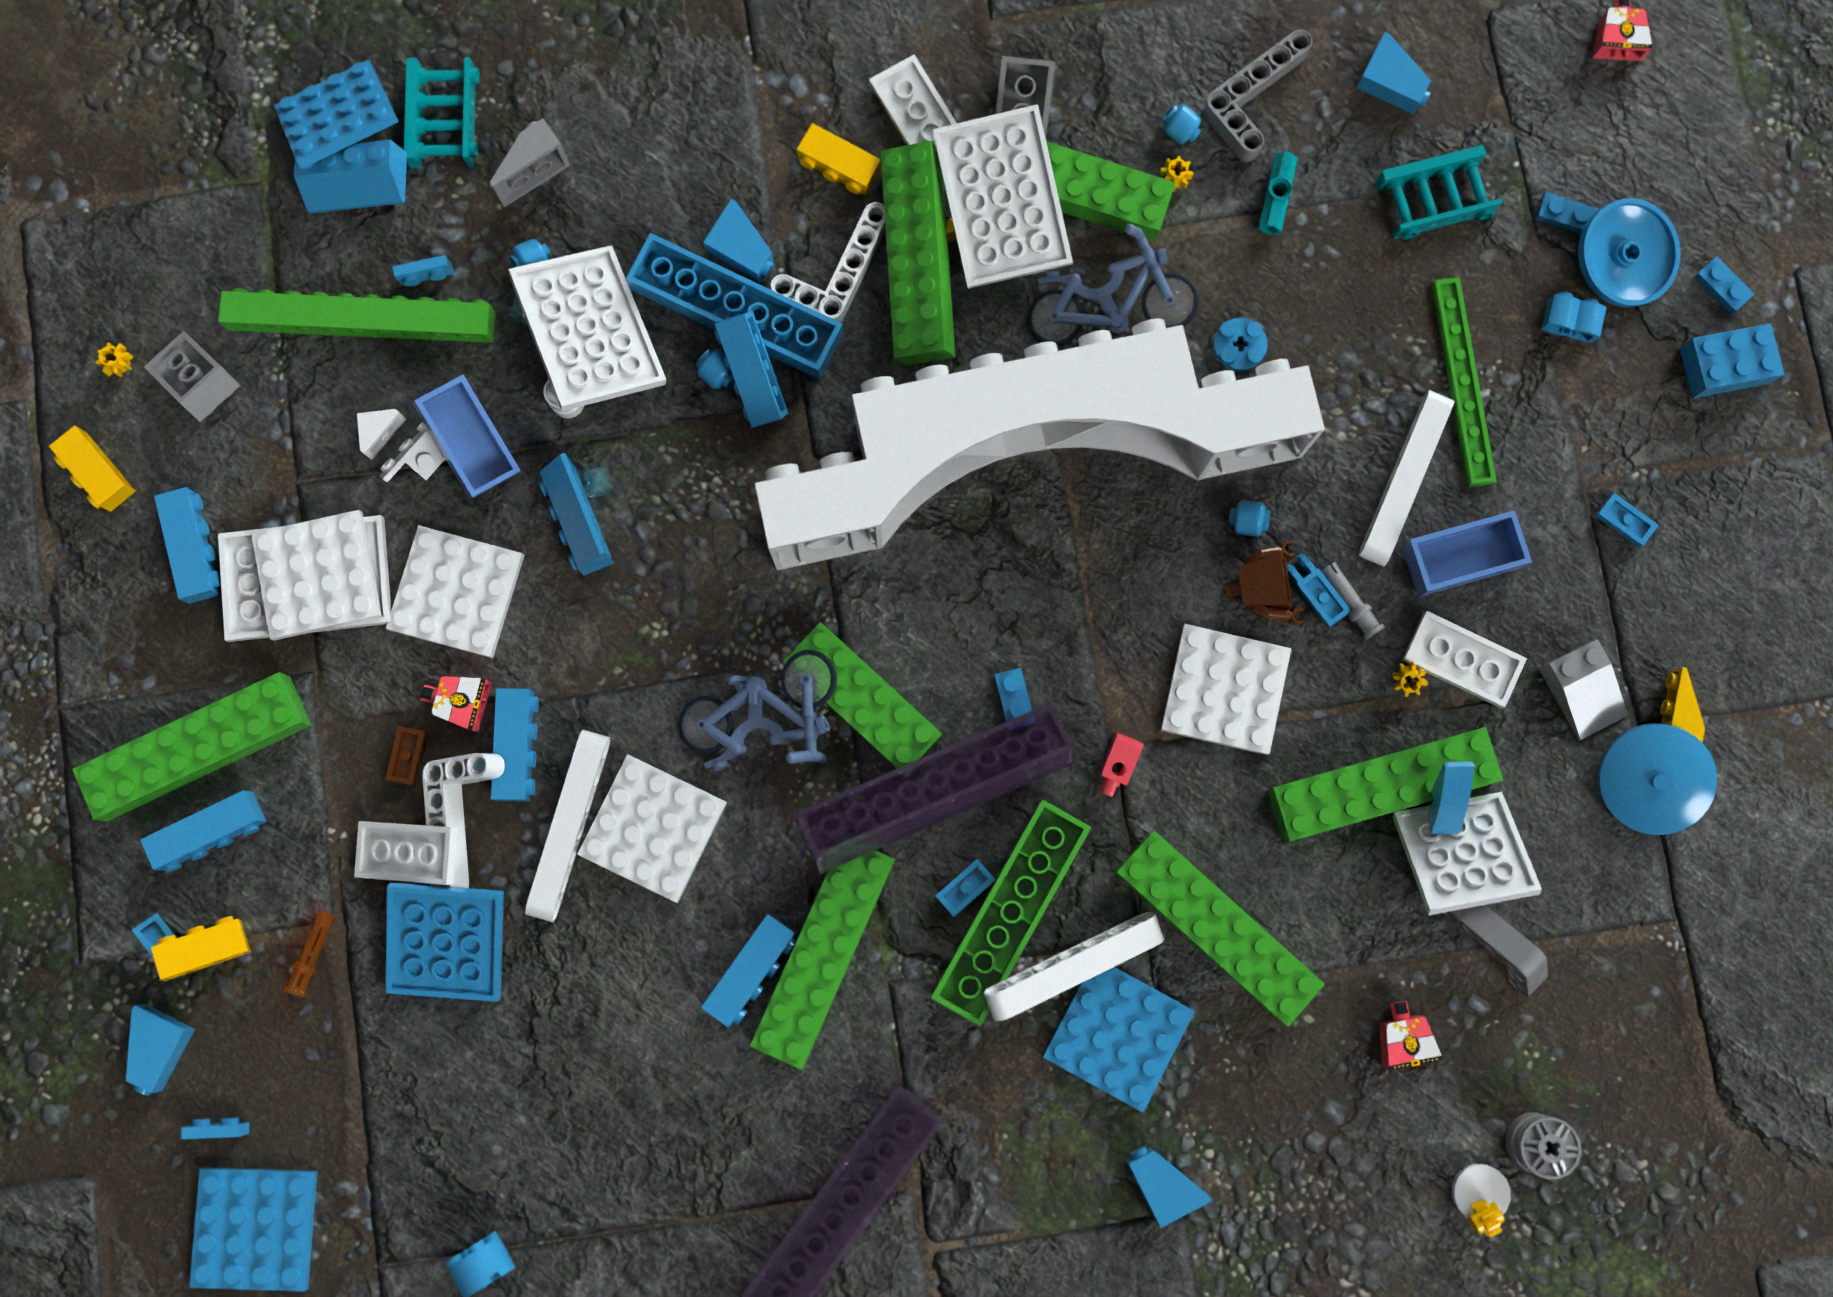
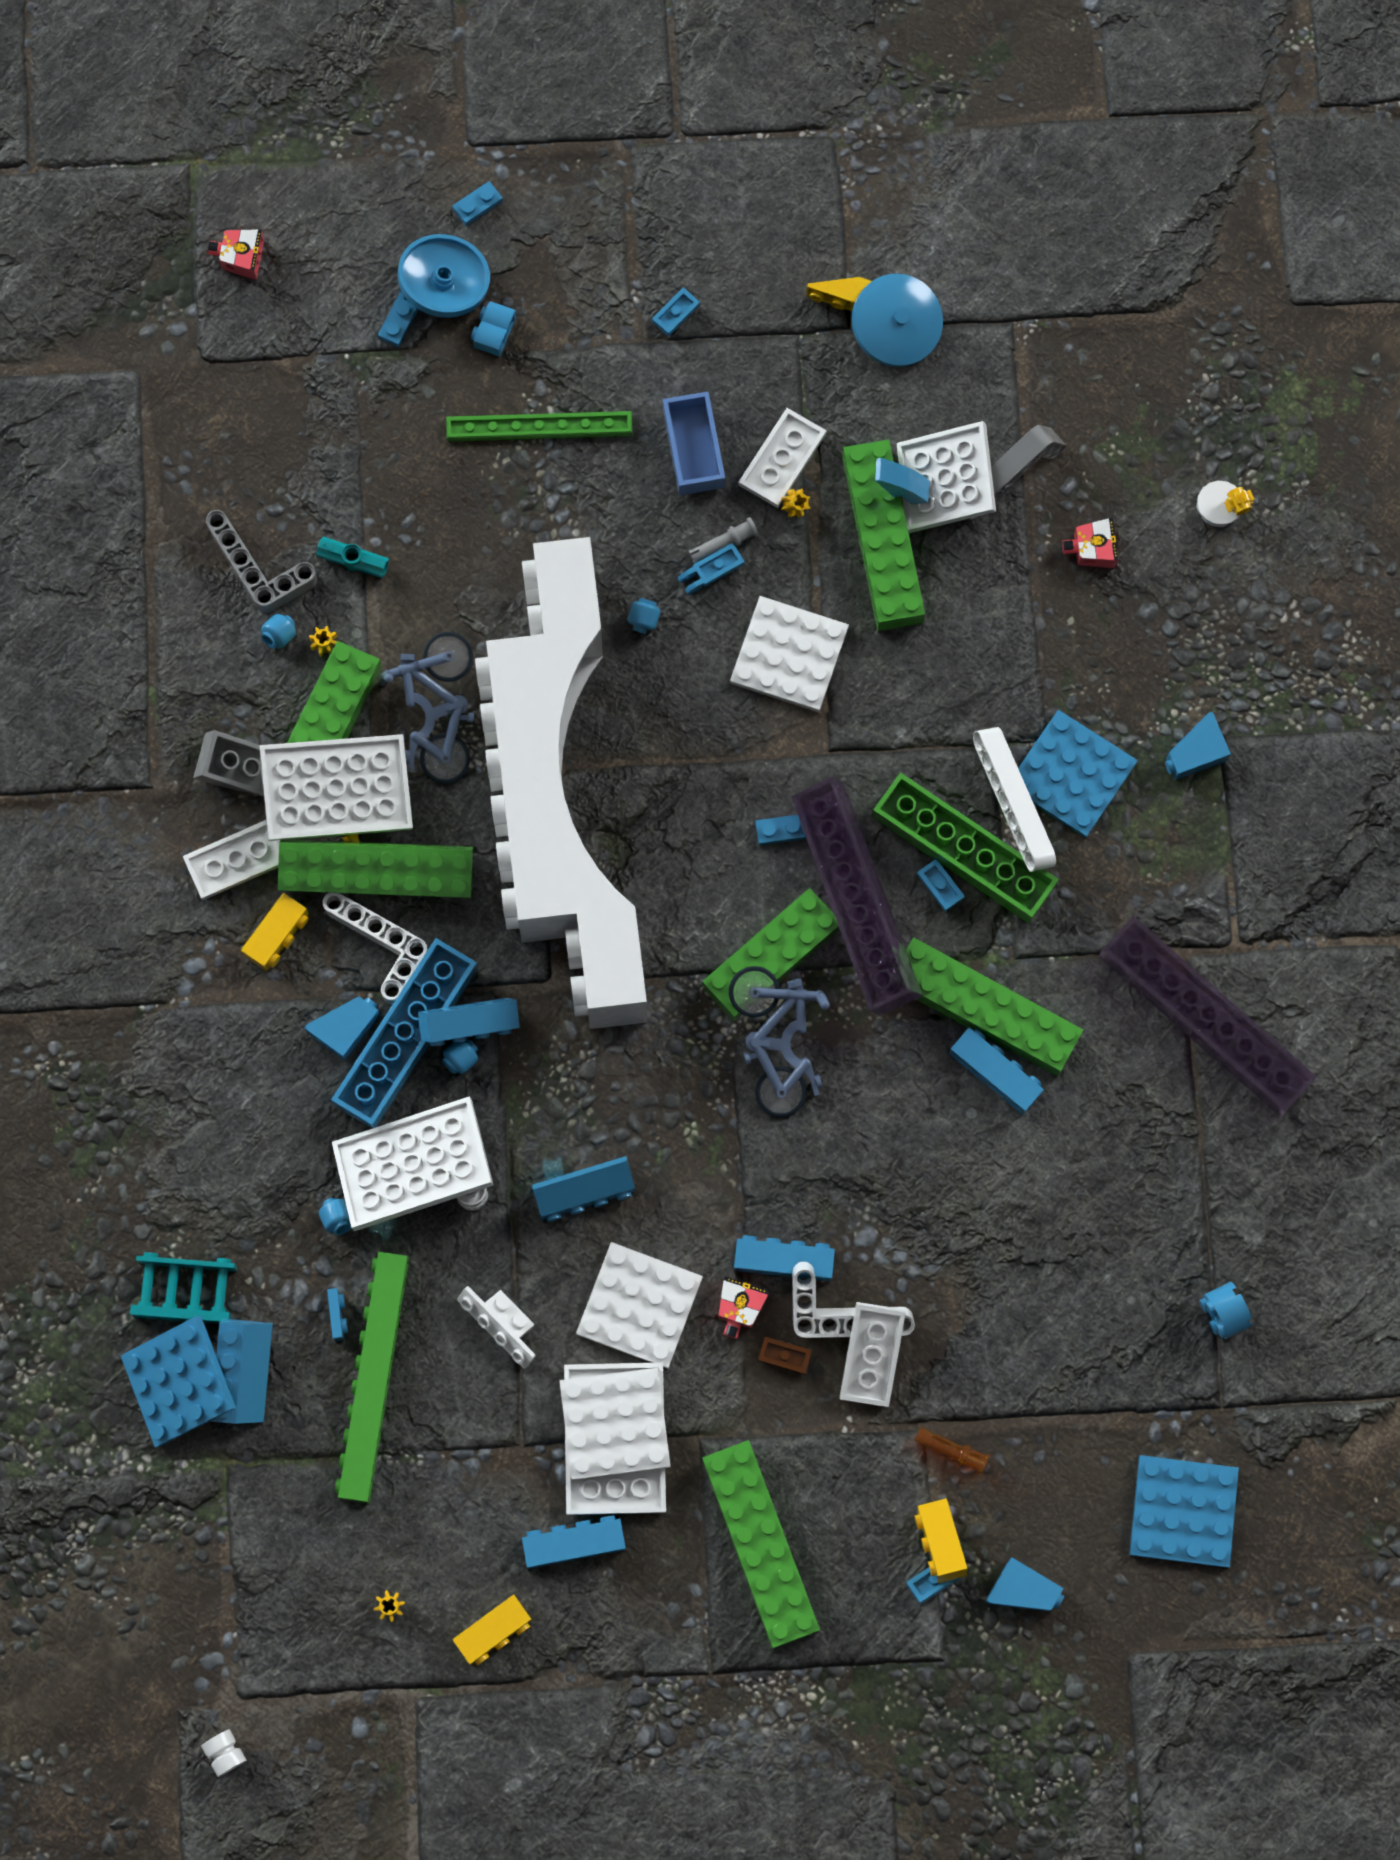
camera: 85 degrees left, 5 degrees down
(191, 376) = (412, 1534): light grey slope -> none
(203, 831) = (836, 1538): dark azure brick -> none
(203, 1129) = (1096, 1549): dark azure plate -> none
(377, 429) = (483, 1366): white slope -> none
(444, 942) = (952, 1325): dark azure plate -> none
(466, 437) = (504, 1276): medium blue piece -> none
(530, 162) = (237, 1195): light grey slope -> none
(567, 826) = (858, 1217): white beam -> none
(652, 828) = (867, 1146): white plate -> none
(1122, 750) = (837, 743): coral torso -> none
(1219, 929) = (990, 682): bright green brick -> none
(1245, 330) = (478, 595): dark azure plate -> none
(1266, 584) = (703, 608): reddish brown torso -> none
(1395, 77) = (255, 446): dark azure slope -> none
(1406, 478) = (621, 483): white beam -> none
(1443, 167) = (351, 437): teal fence -> none
(1527, 1147) = (1182, 461): light grey wheel -> none
(1585, 689) = (815, 365): light grey slope -> none
(1731, 360) = (547, 208): dark azure brick -> none

